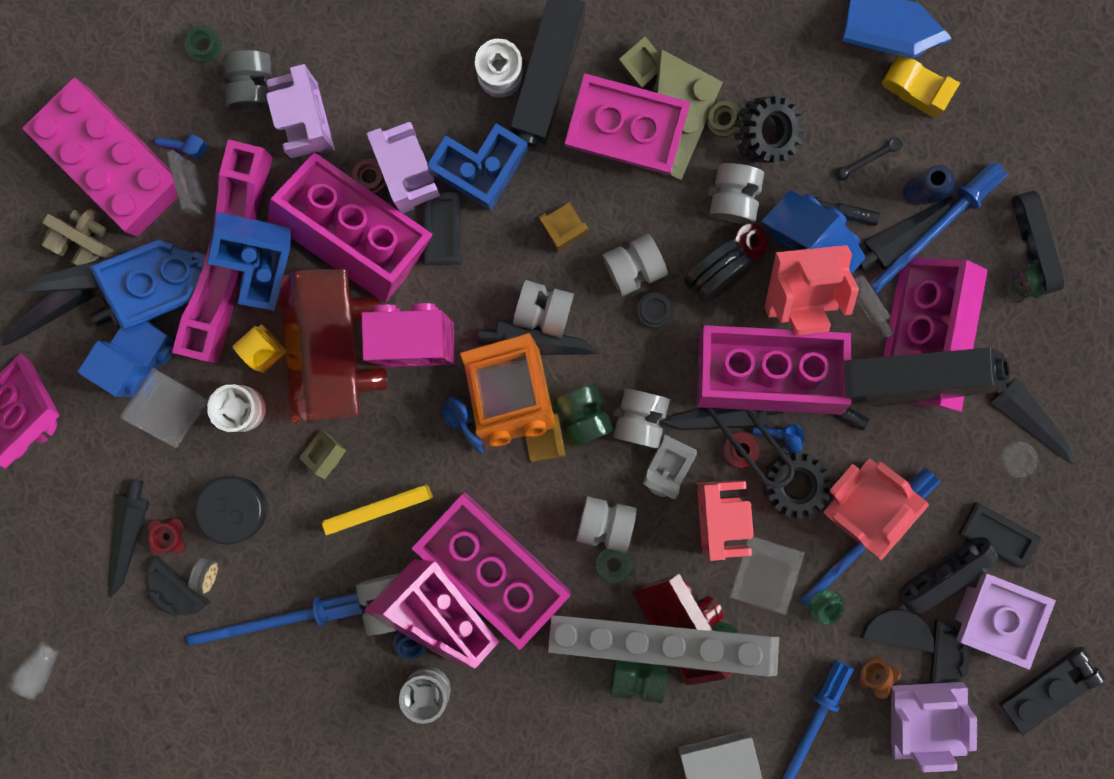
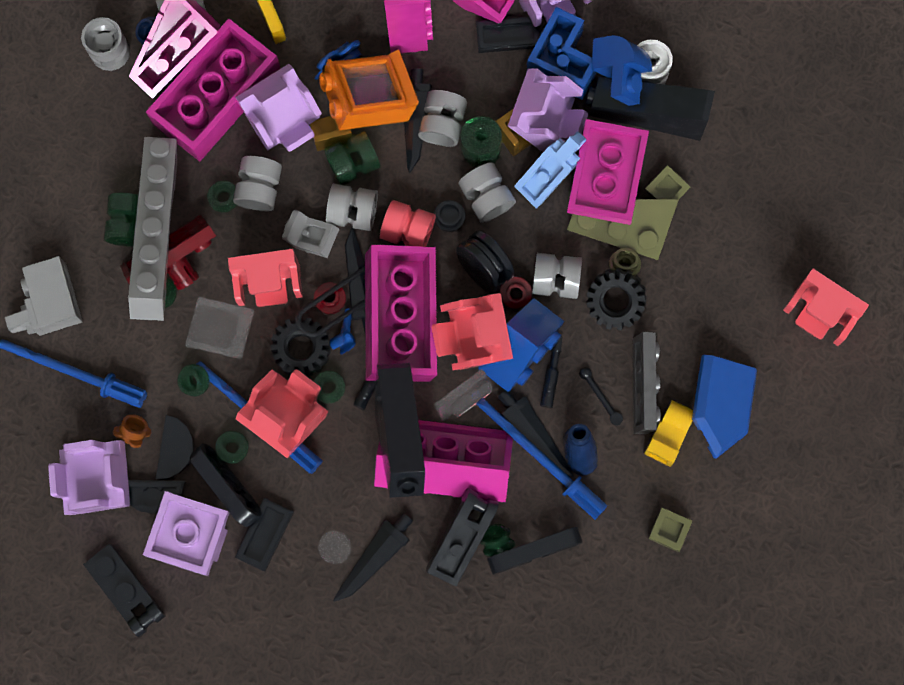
camera: 90 degrees right, 10 degrees down
(503, 88) = (623, 63): none -> blue brick
(525, 494) = (280, 109): none -> lavender panel
(550, 188) = (545, 110): none -> lavender panel
(576, 266) = (481, 141): none -> clear green wheel
(618, 188) = (550, 169): none -> light blue hinge
(668, 356) = (407, 226): none -> coral wheel
(832, 447) = (337, 394): none -> clear green plate
(863, 107) = (645, 383): none -> flat silver plate
(914, 566) = (232, 437): none -> clear green plate
(1023, 96) = (670, 530): none -> olive plate
(1023, 319) = (461, 538): none -> black plate

